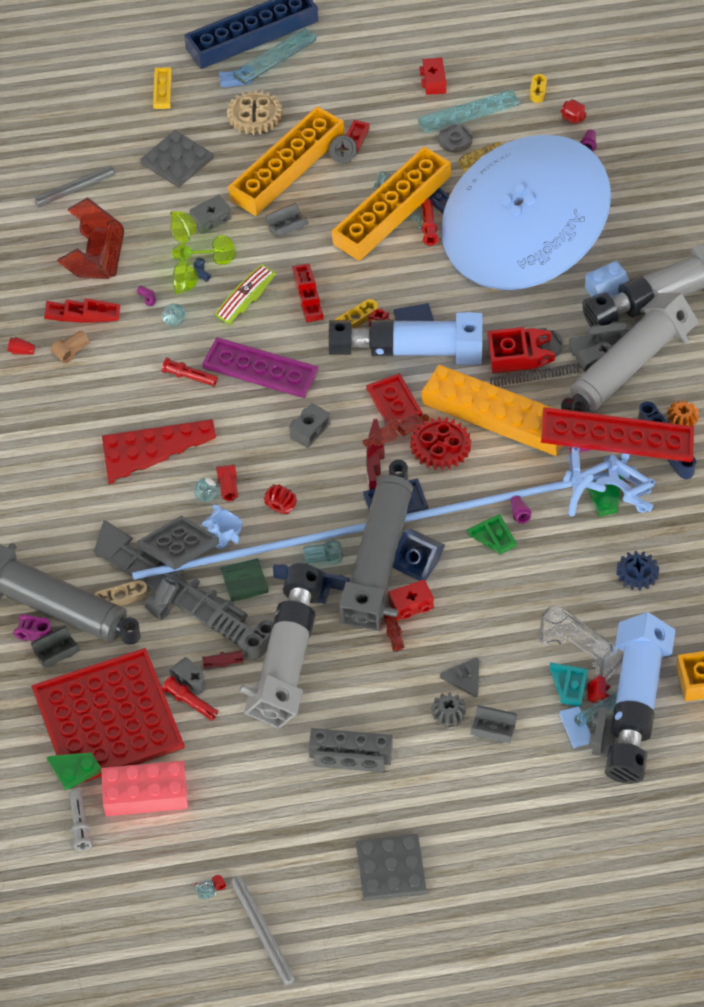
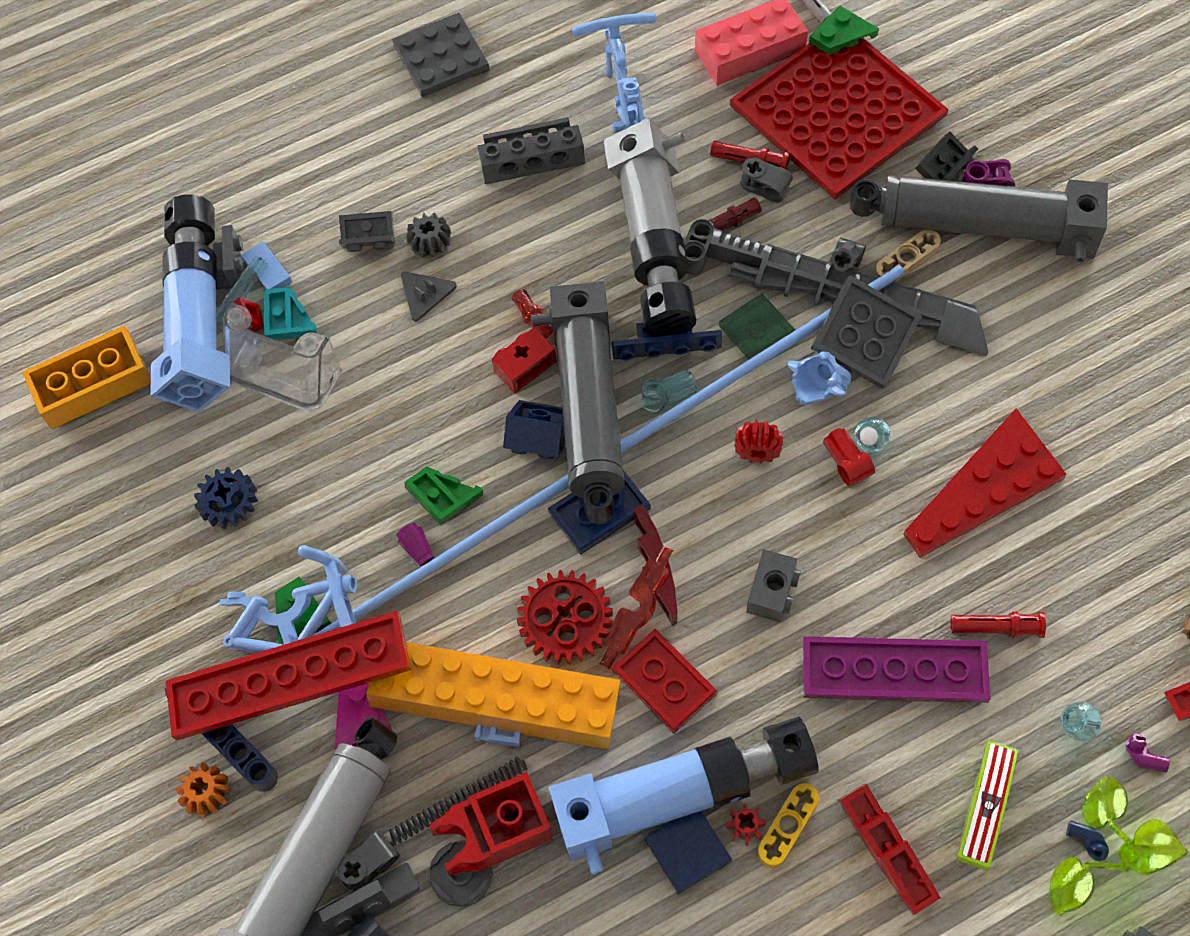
camera: 165 degrees right, 10 degrees up
(263, 761) = (629, 101): none -> light blue piece

